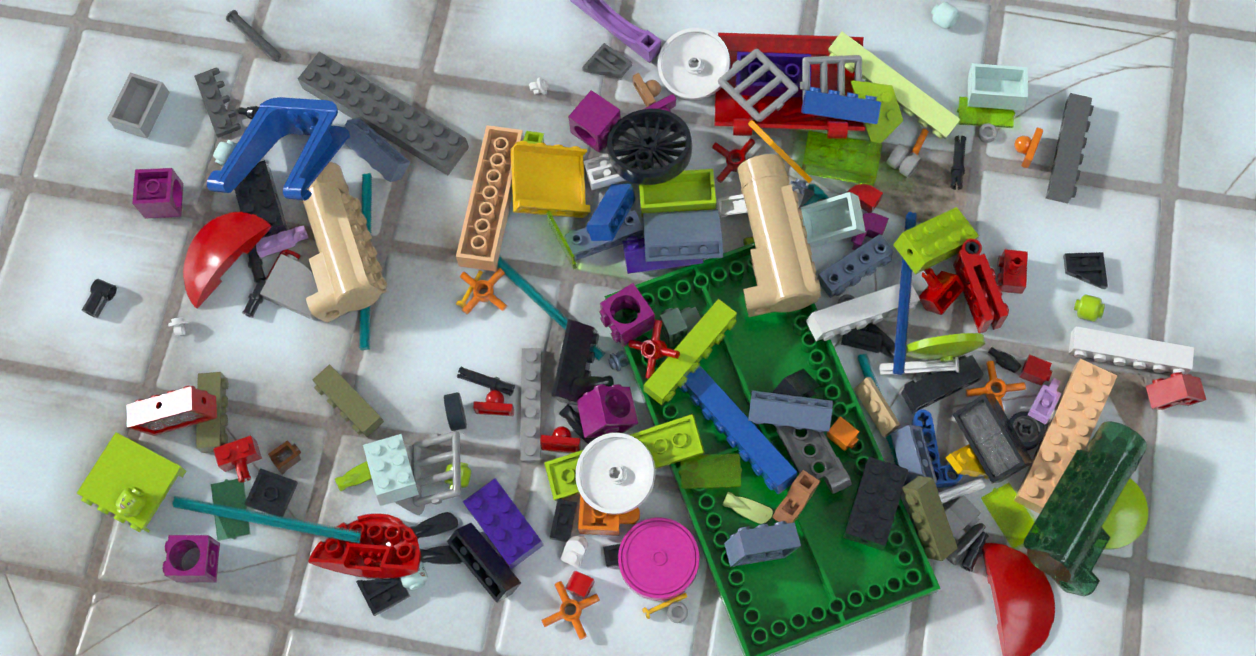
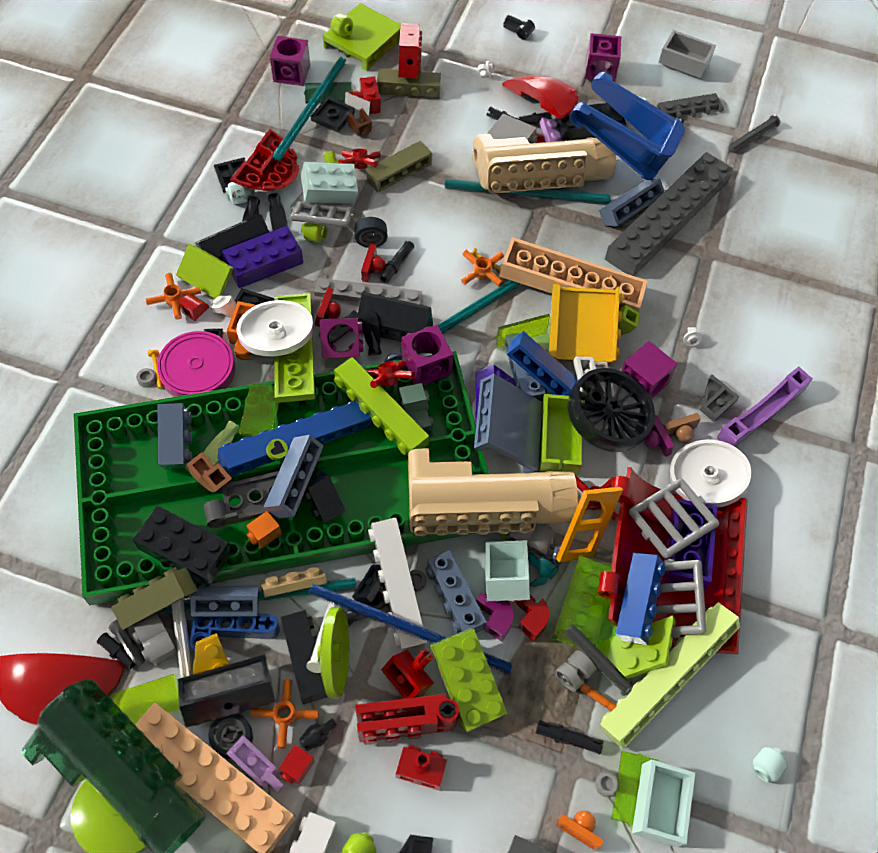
camera: 90 degrees right, 10 degrees down
(258, 462) = (357, 103): none -> white sticker
(345, 445) = (360, 158): none -> red bar
(535, 581) = (204, 271): none -> lime tile
(764, 433) = (276, 449): none -> lime tile
(893, 140) = (599, 659): none -> dark grey axle

